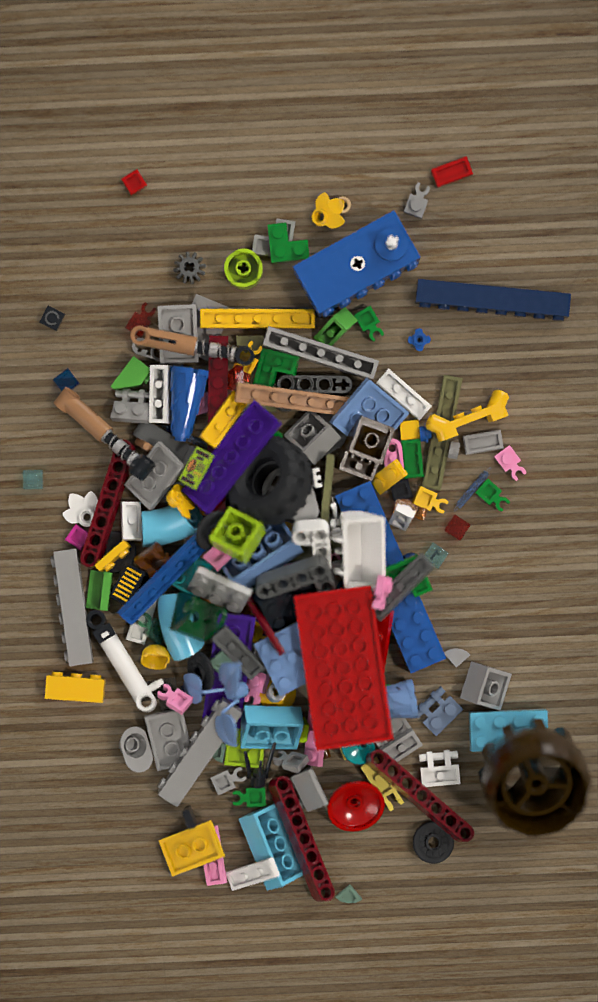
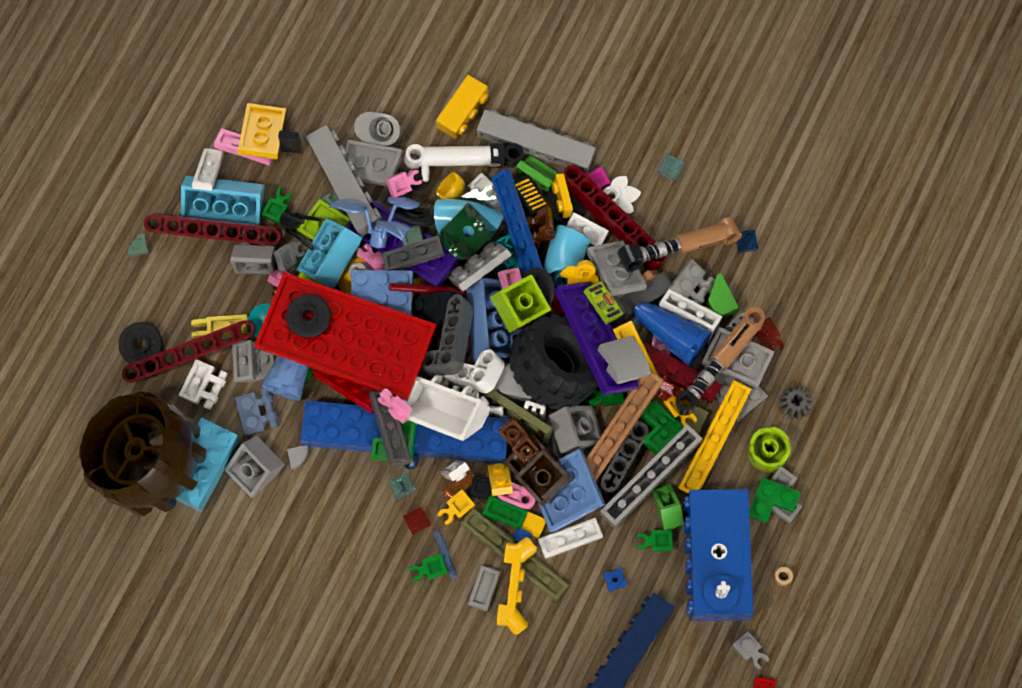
camera: 115 degrees right, 15 degrees down
(52, 318) = (811, 258): black tile -> none
(134, 182) = (903, 396): red tile -> none
(225, 781) = (304, 192): light grey plate -> none
(240, 421) = (624, 360): none -> light grey slope
(331, 210) = (783, 560): yellow plate -> none
(350, 475) = (519, 439): none -> reddish brown slope
(353, 716) = (310, 328): none -> black wheel
(356, 813) = (214, 290): red dish -> none
(453, 450) = (491, 555): light grey axle -> none
(508, 460) = (454, 603): bright pink plate -> none

